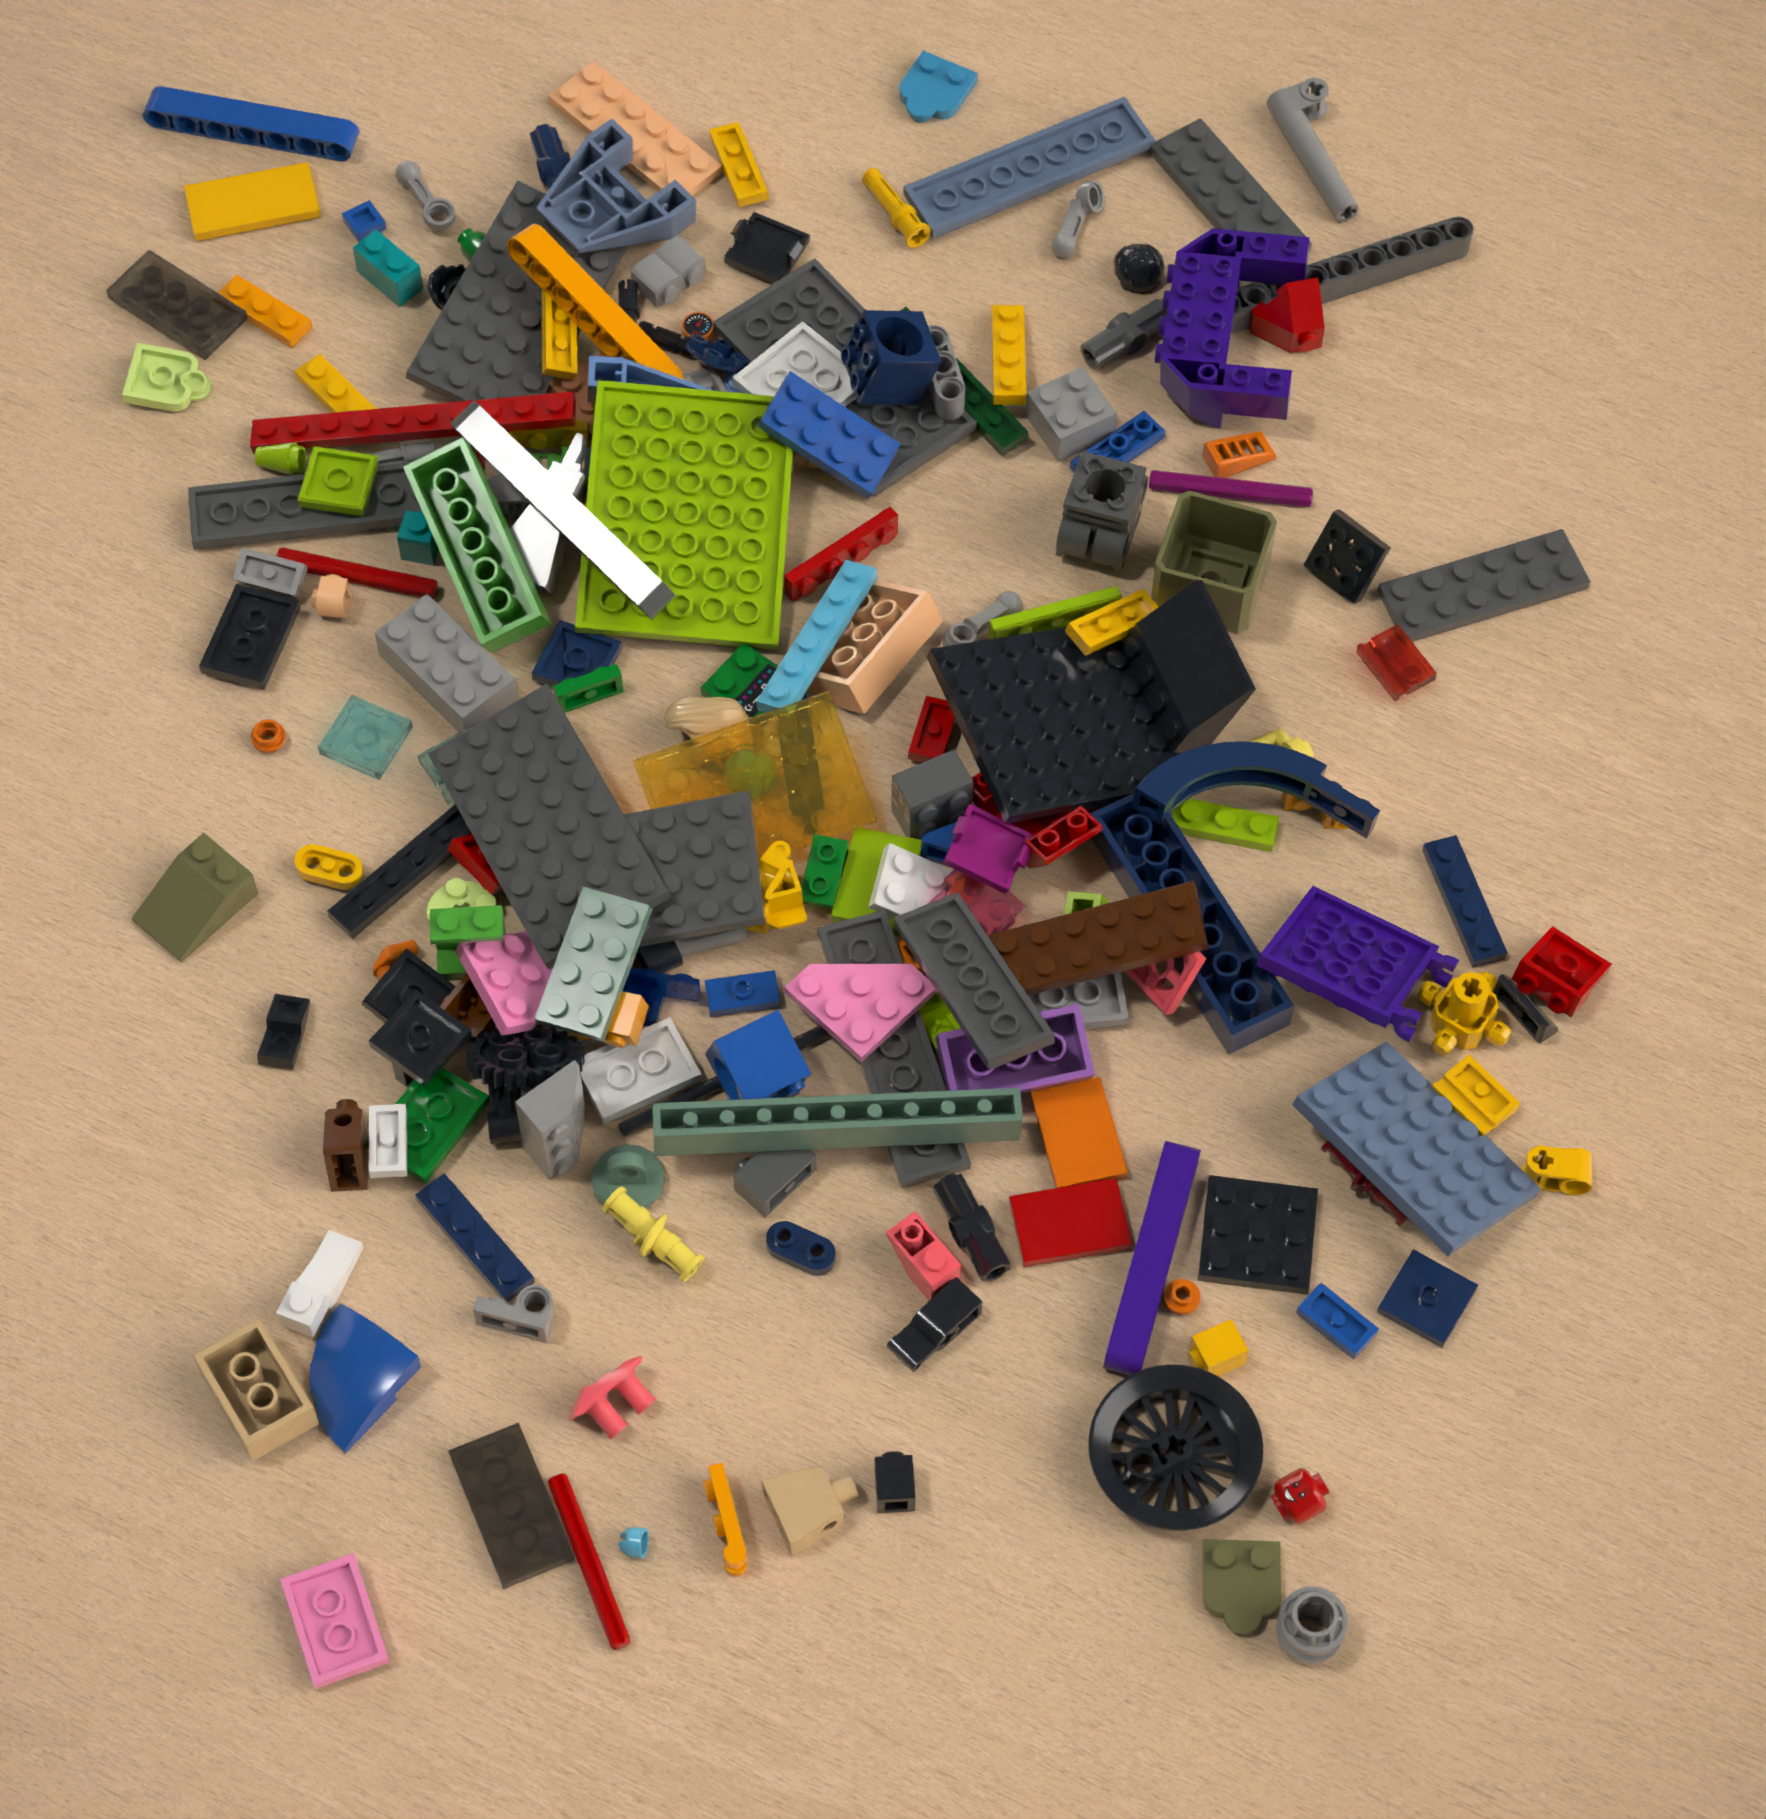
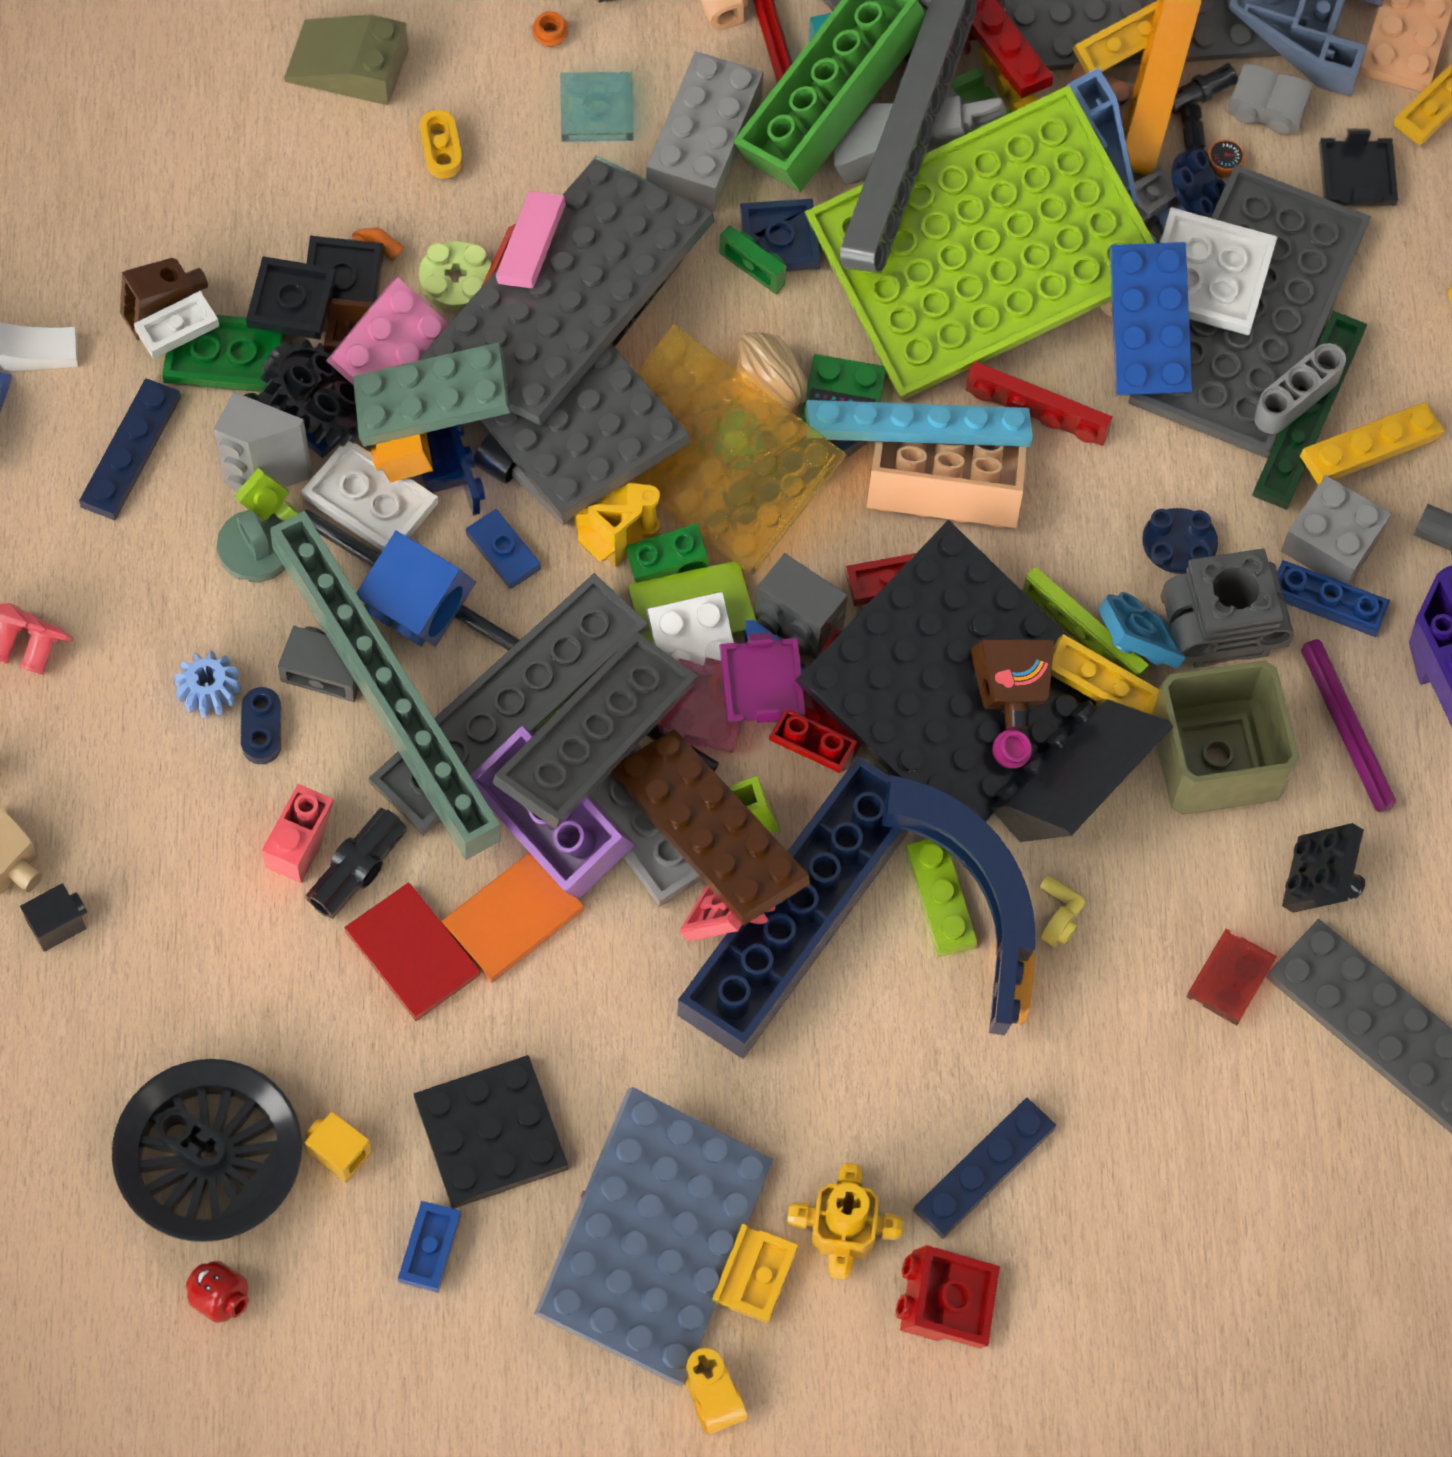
camera: 60 degrees right, 5 degrees up
(284, 1031) = (260, 194): black slope -> none
(398, 874) = (450, 199): black plate -> none
(459, 925) = (411, 272): bright green panel -> none
(487, 827) = (530, 239): none -> bright pink tile
(516, 1319) = (67, 518): light grey plate -> none
(599, 1143) = (265, 496): none -> lime plate
(652, 1234) = (201, 589): light yellow piece -> none
(732, 1277) = (207, 671): none -> light blue gear
(860, 1001) = (532, 645): bright pink plate -> none
(890, 357) = (1299, 316): dark blue brick -> none
(936, 1324) = (237, 879): black piece -> none
(1005, 604) = (1077, 580): light grey piece -> none
(1014, 519) = (1178, 536): none -> dark blue dish
(1083, 577) = (1140, 630): none -> dark azure plate
(1087, 674) = (1013, 677): none -> reddish brown torso
(1139, 708) = (1012, 749): none -> dark pink plate
(1152, 1259) = (408, 1041): dark purple beam -> none
(1179, 1306) = (382, 1100): orange plate -> none
(1232, 465) = (1404, 704): orange slope -> none
(1241, 1581) = (106, 1279): olive plate -> none
(1320, 1606) = (65, 1339): light grey piece -> none
(1354, 960) = (835, 1079): dark purple plate -> none
(1427, 1298) = (501, 1325): dark blue plate -> none
(1524, 1009) = (888, 1283): black slope -> none

